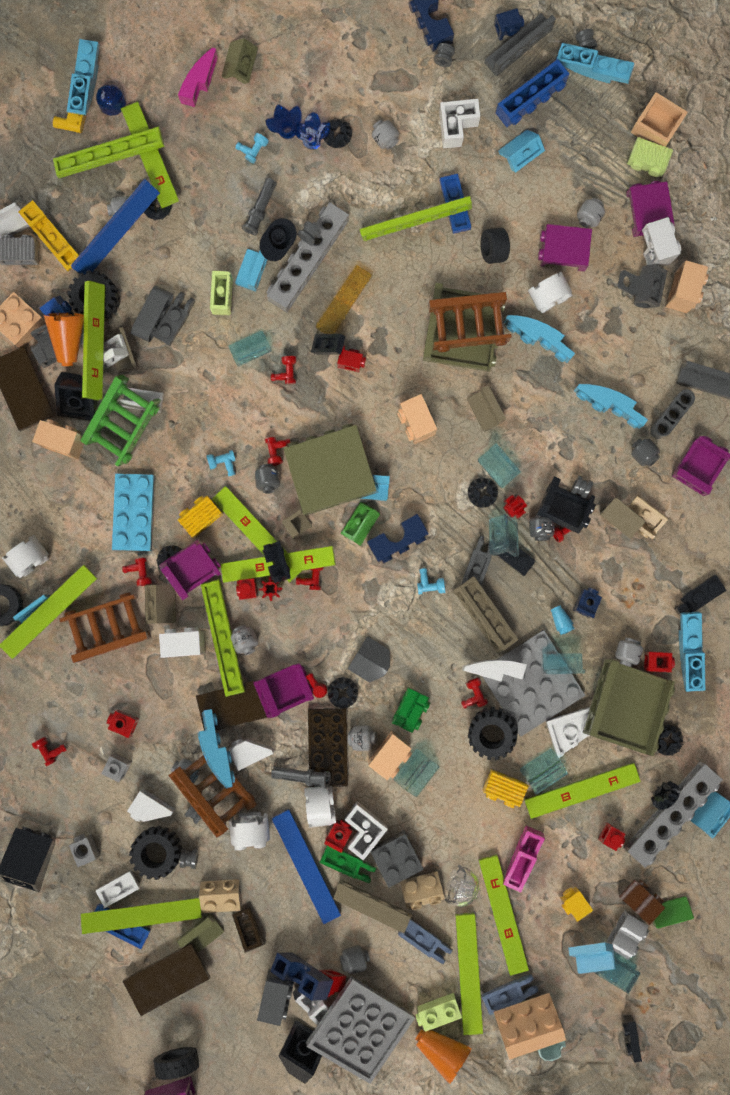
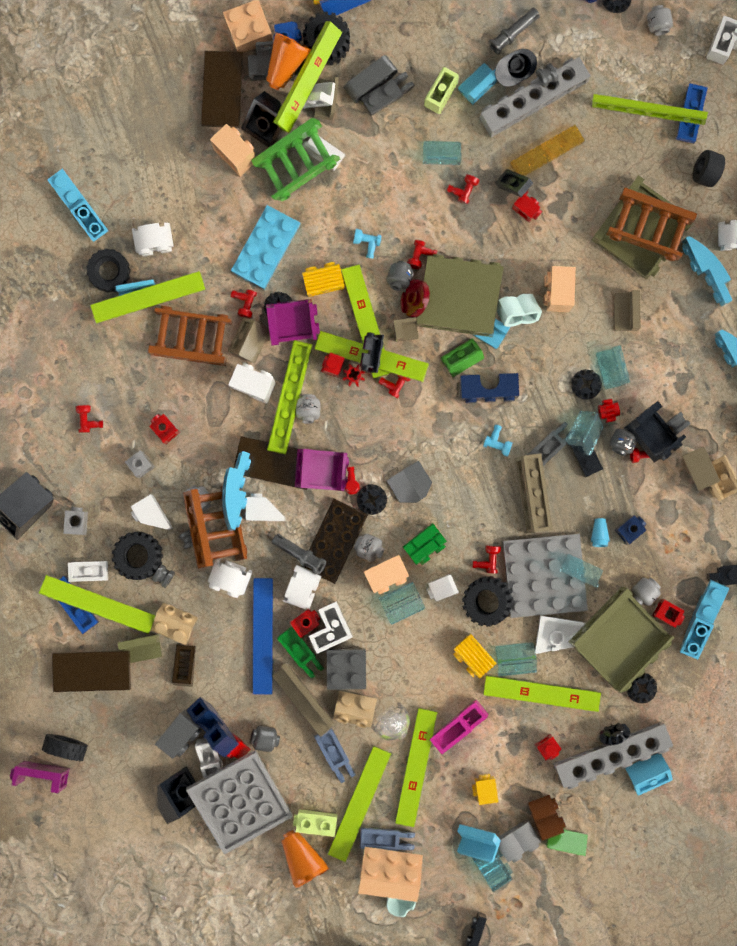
camera: 35 degrees right, 0 degrees up
(291, 492) = (415, 298): none -> dark red tile
(389, 456) = (518, 310): none -> light aqua brick
(446, 742) = (442, 588): none -> white slope
(496, 668) = (518, 545): white slope -> none

